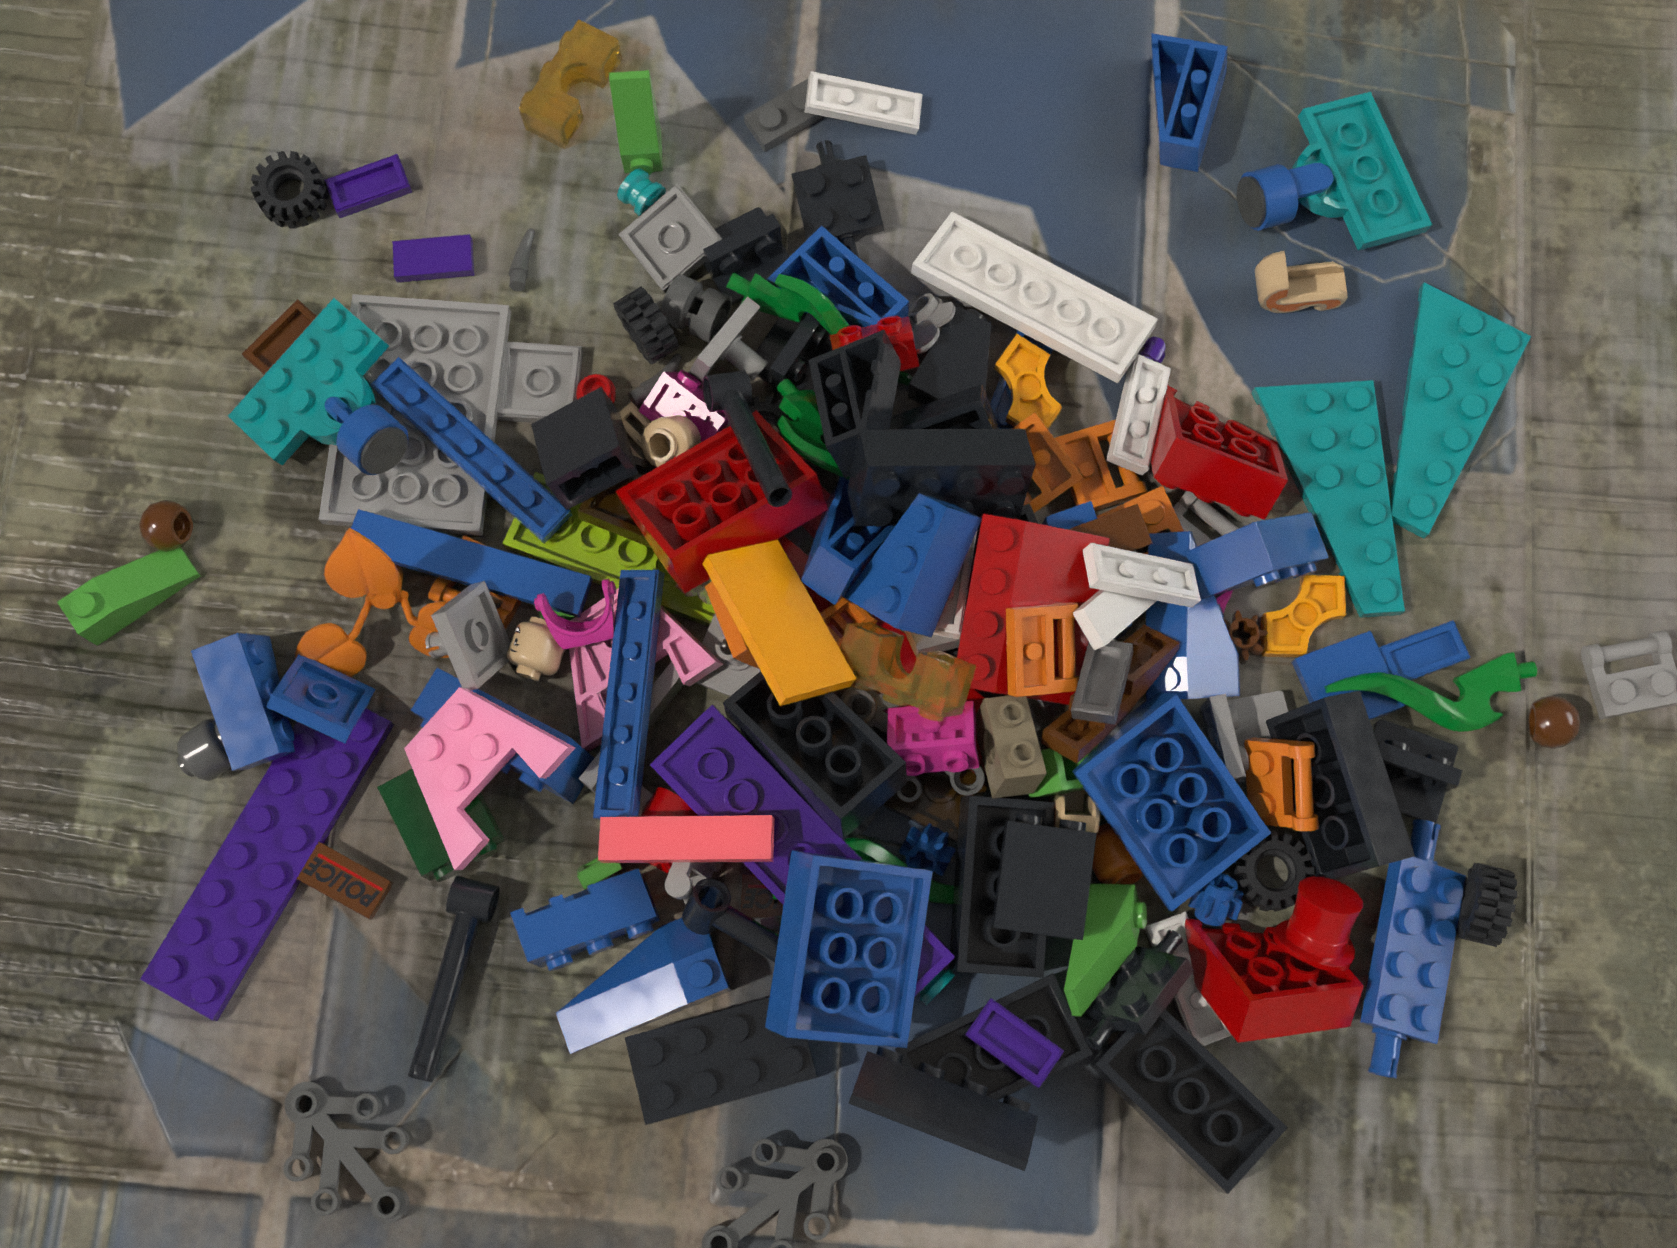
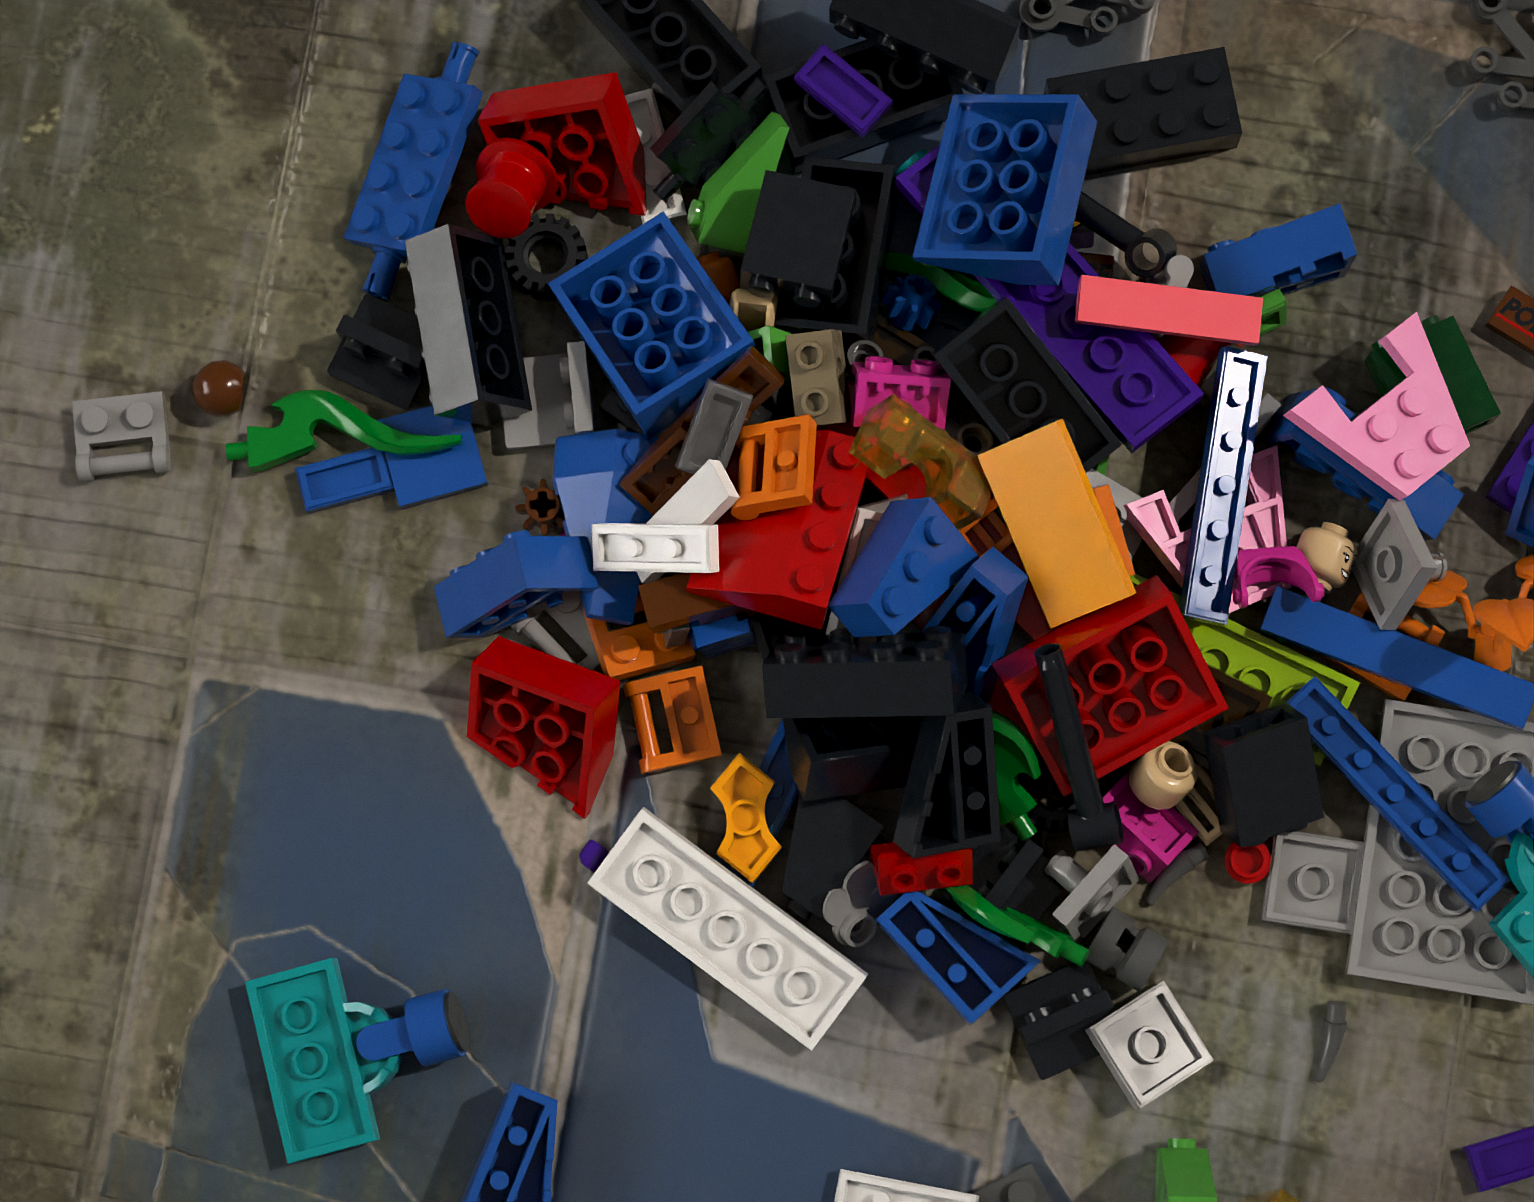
camera: 170 degrees left, 5 degrees up
(433, 258) = (1437, 1051): dark purple tile -> none
(470, 903) = (1400, 290): black piece -> none
(640, 191) = (1183, 1108): teal wheel -> none
(646, 325) = (1185, 926): black tyre -> none
(651, 982) = (1216, 193): blue wedge -> none
(838, 198) = (946, 1080): black plate -> none
(1053, 468) = (741, 722): orange plate -> none
(1139, 415) = (621, 774): white tile -> none
(1217, 901) = (608, 226): blue gear -> none
(1271, 782) = (528, 337): orange plate -> none
(1289, 629) = (454, 543): light orange tile -> none
(1299, 286) = (413, 916): tan animal -> none
(1340, 471) = (402, 703): teal wing -> none
(1450, 391) = (255, 784): teal wing -> none
(1487, 904) = (332, 198): black tyre -> none

